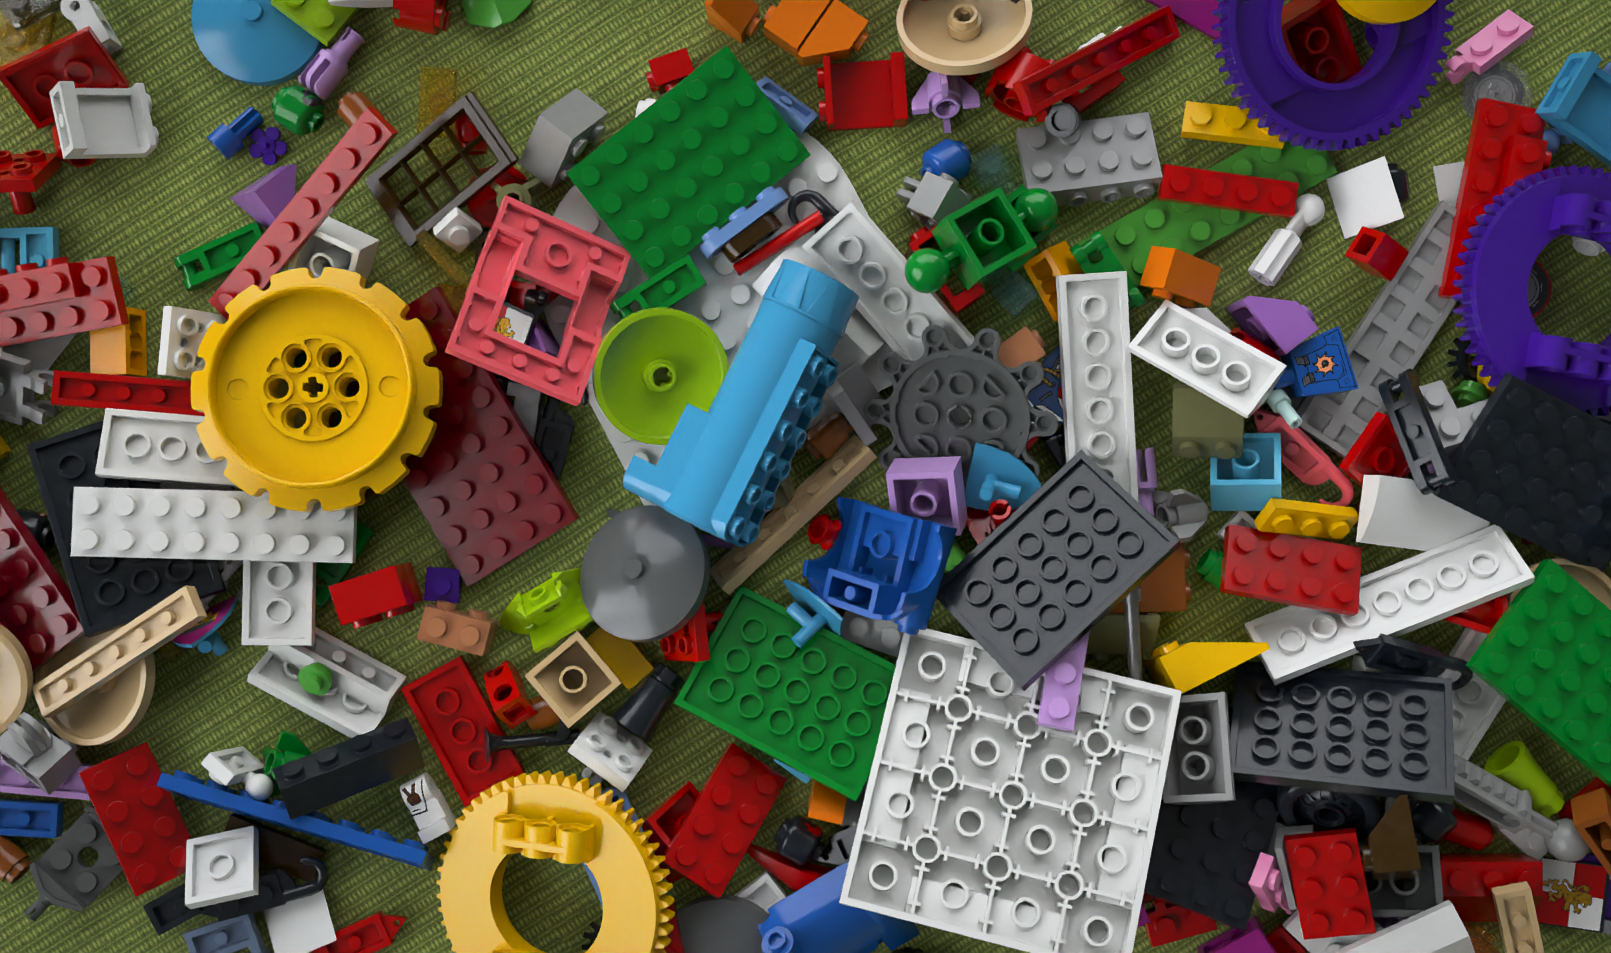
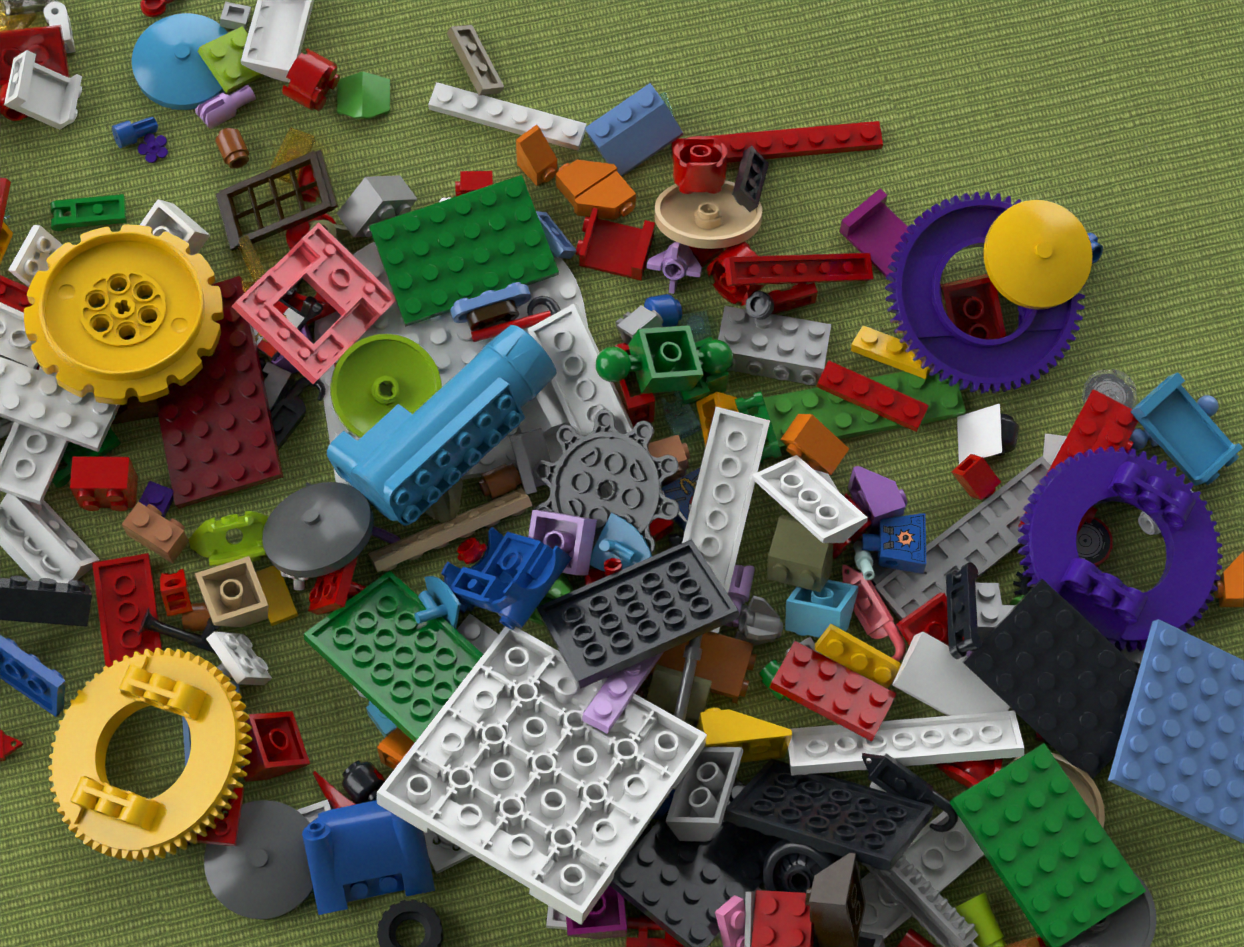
camera: 15 degrees right, 20 degrees down
(268, 195) = (140, 184): medium lavender slope -> none
(298, 110) = (187, 129): green head -> none
(309, 207) = (175, 185): plate -> none
(315, 678) = (29, 532): bright green plate -> none
(427, 807) = (75, 661): white leg -> none
(457, 229) = (271, 245): white plate -> none
(650, 702) = (283, 635): black plant -> none
(663, 289) = (420, 329): green plate -> none
(723, 820) = (308, 740): red plate -> none
(1285, 242) = (909, 449): white piece -> none
(1432, 820) = (889, 922): black head -> none
(1488, 46) = (1110, 357): bright pink plate -> none

